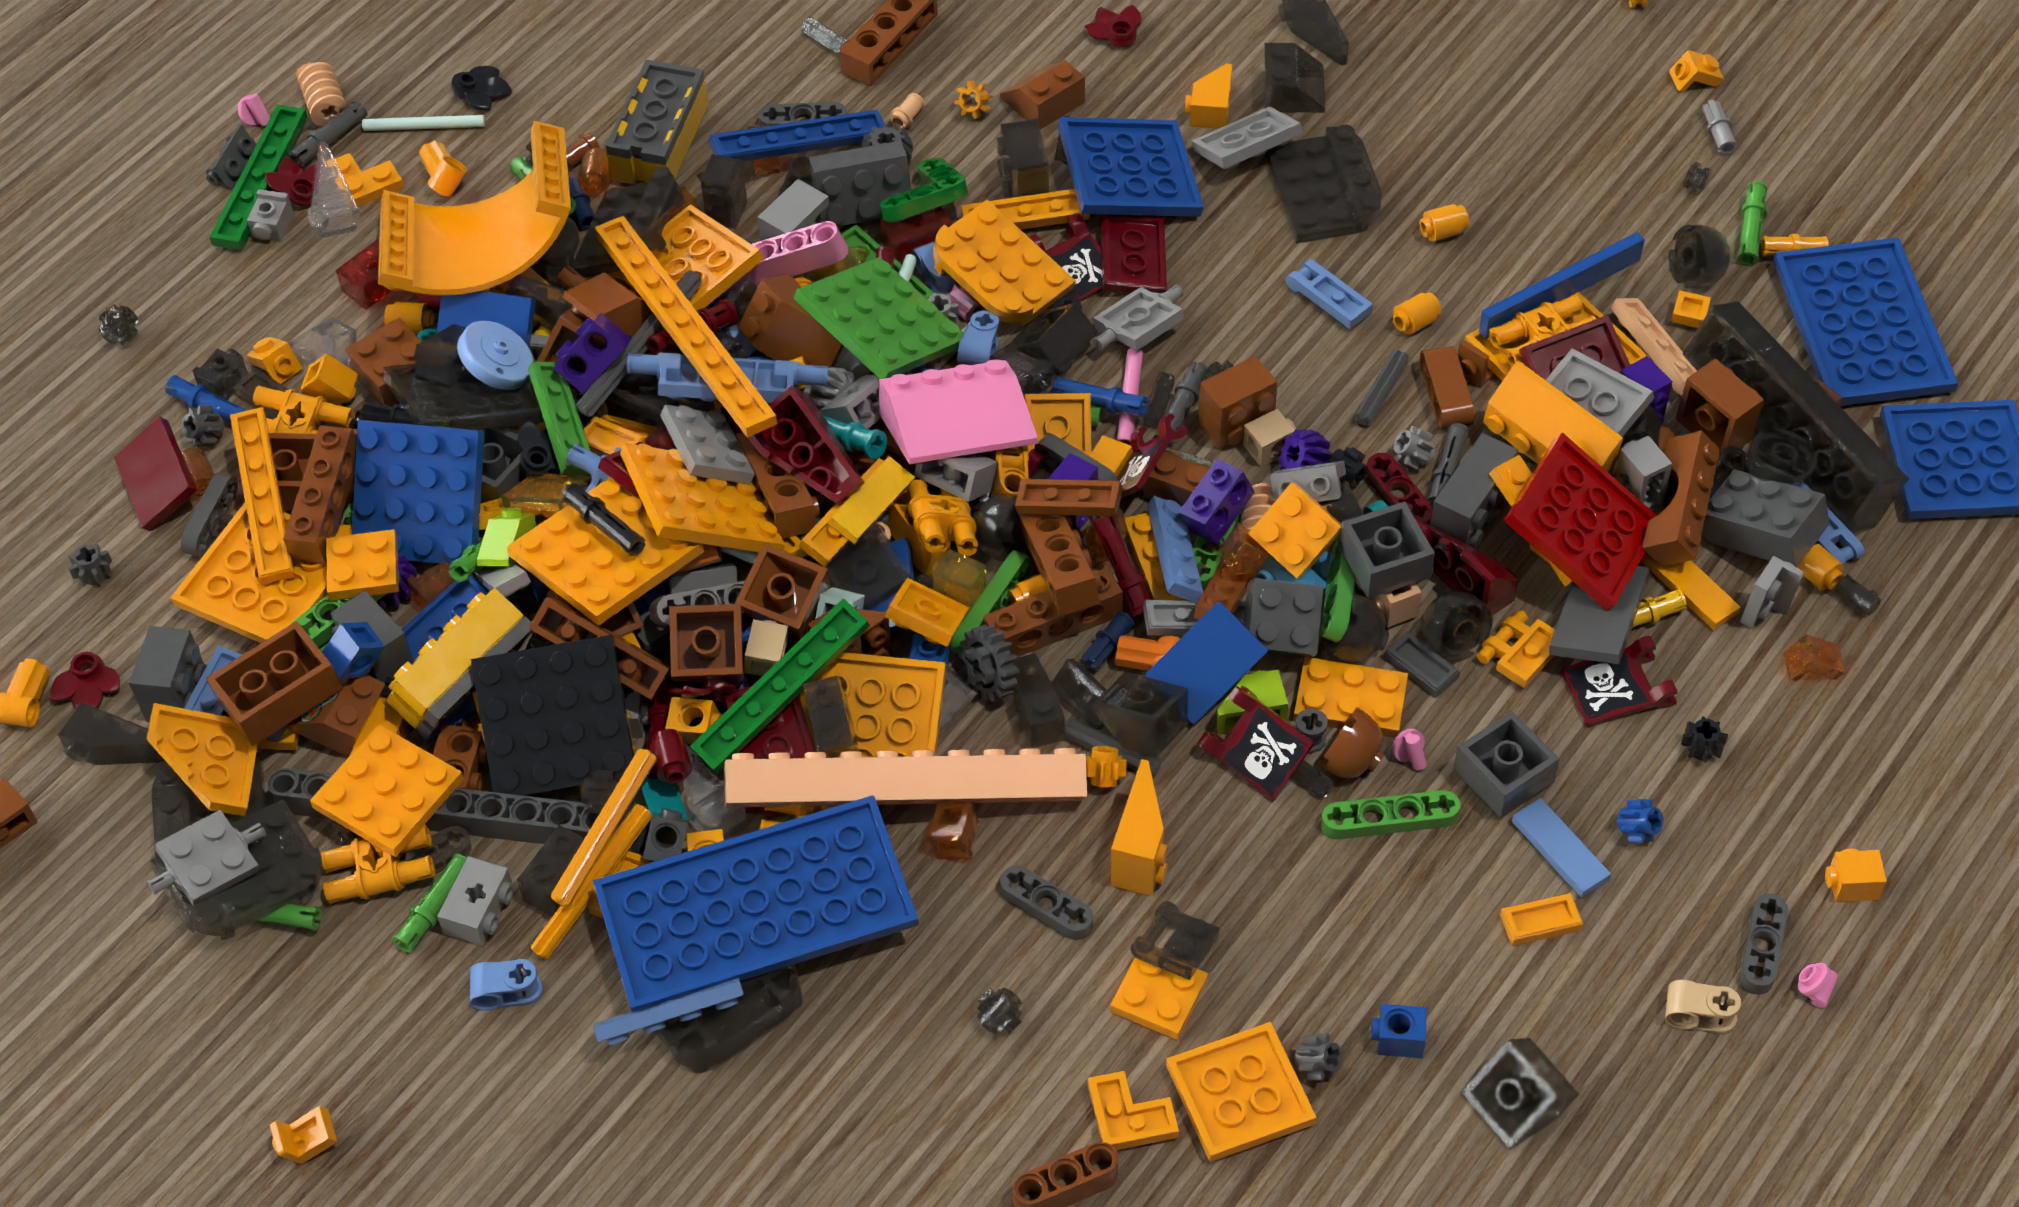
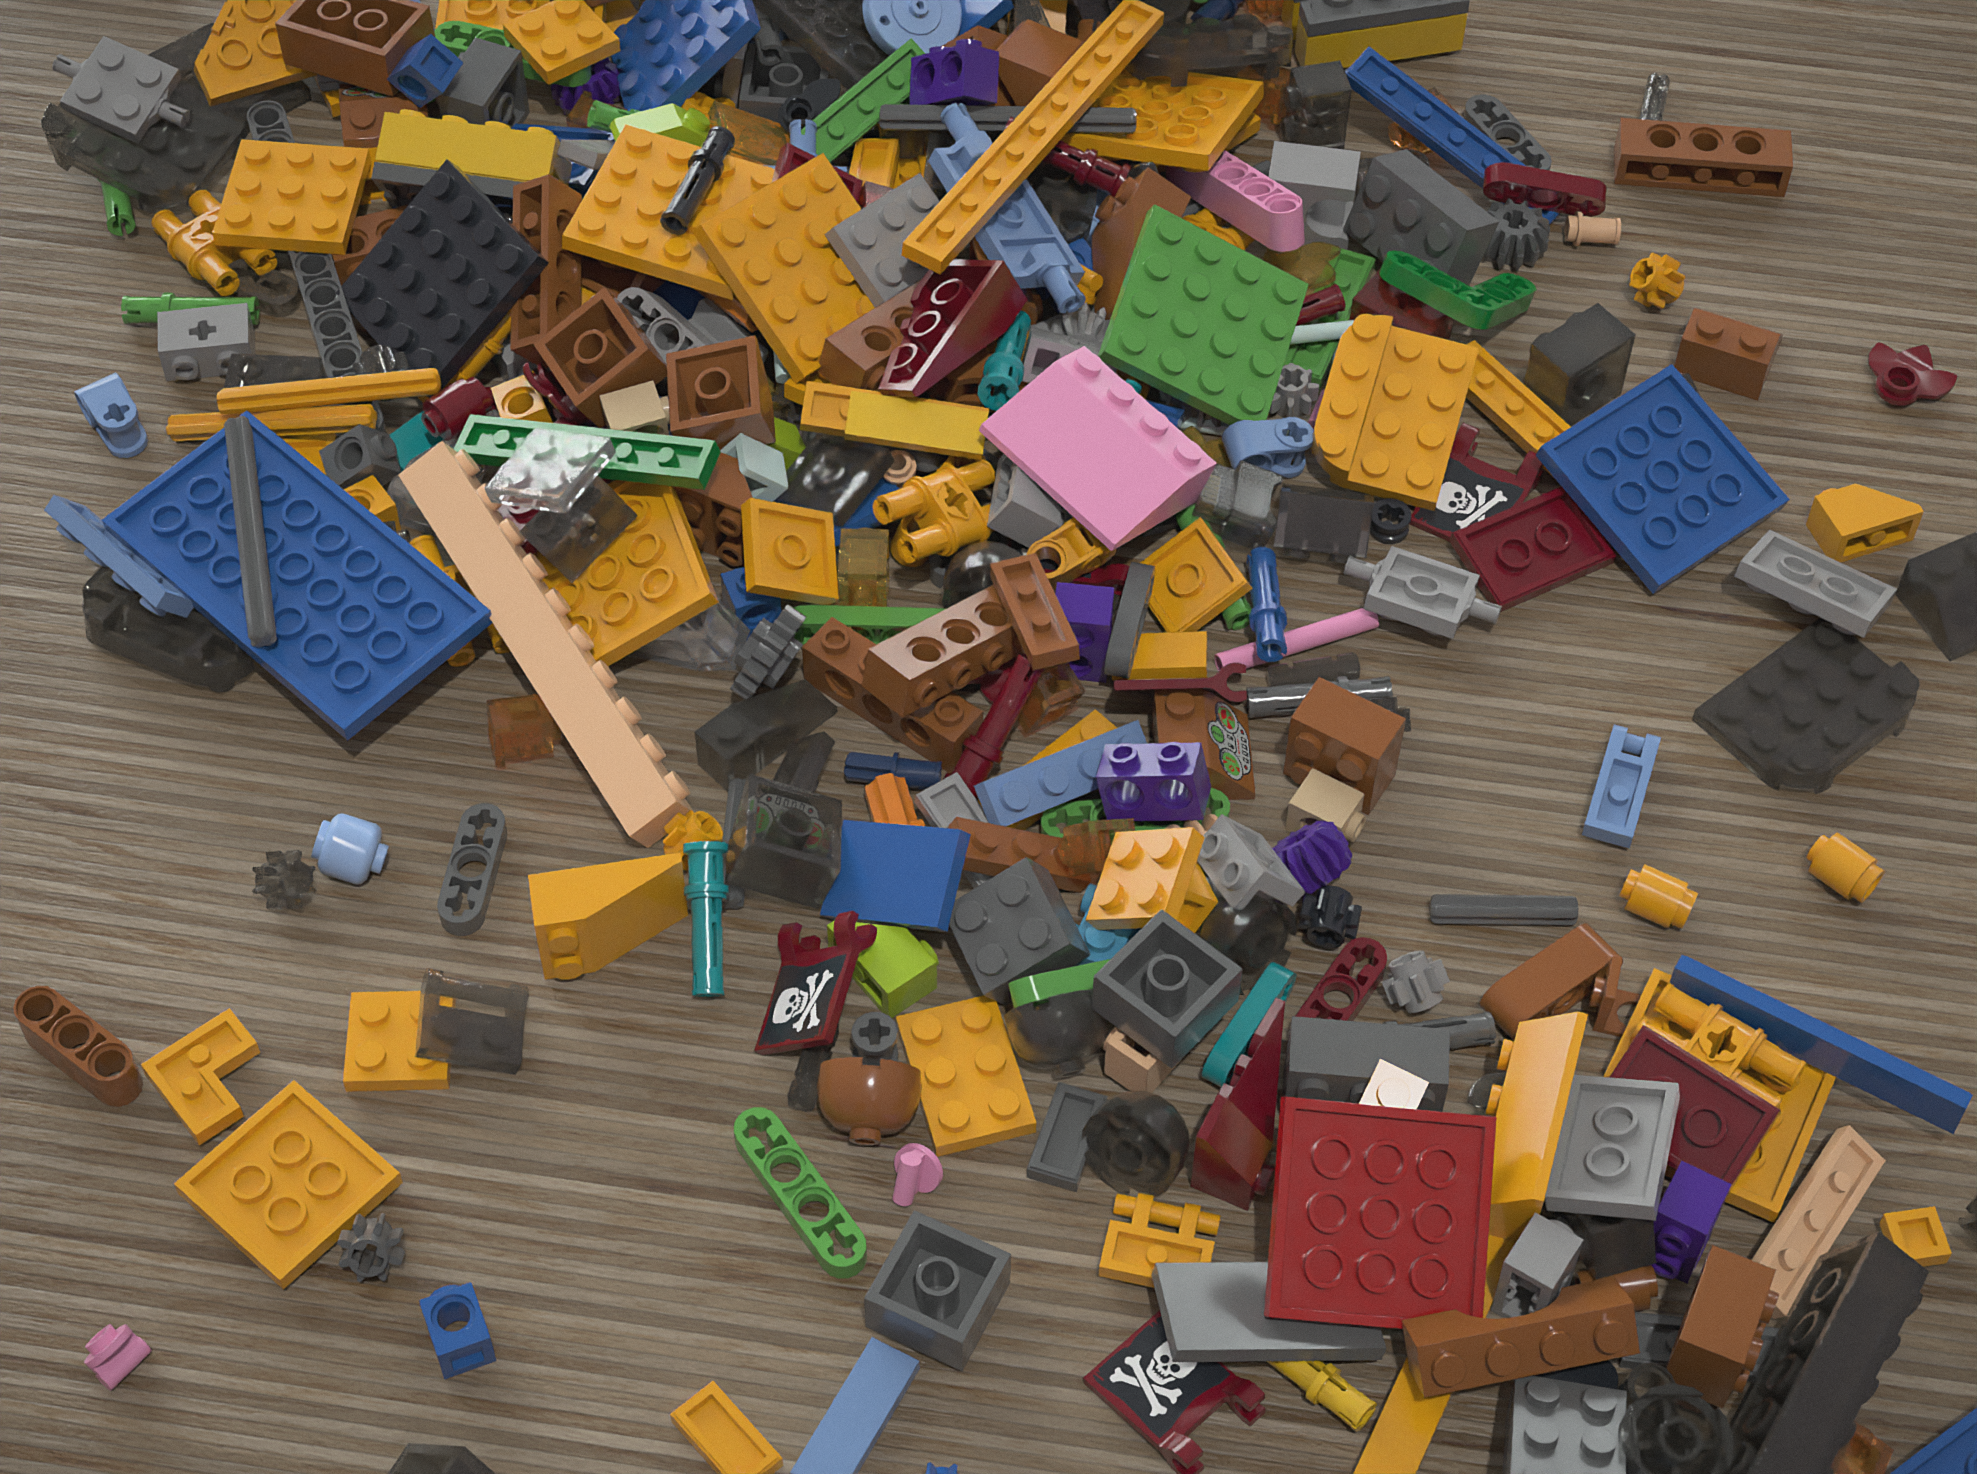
camera: 60 degrees right, 0 degrees up
(712, 912) = (250, 532): none -> dark grey axle
(798, 704) = (550, 470): none -> clear plate
(872, 113) = (1544, 189): none -> dark red beam
(994, 964) = (349, 848): none -> light blue head
(1175, 777) = (706, 894): none -> teal pin

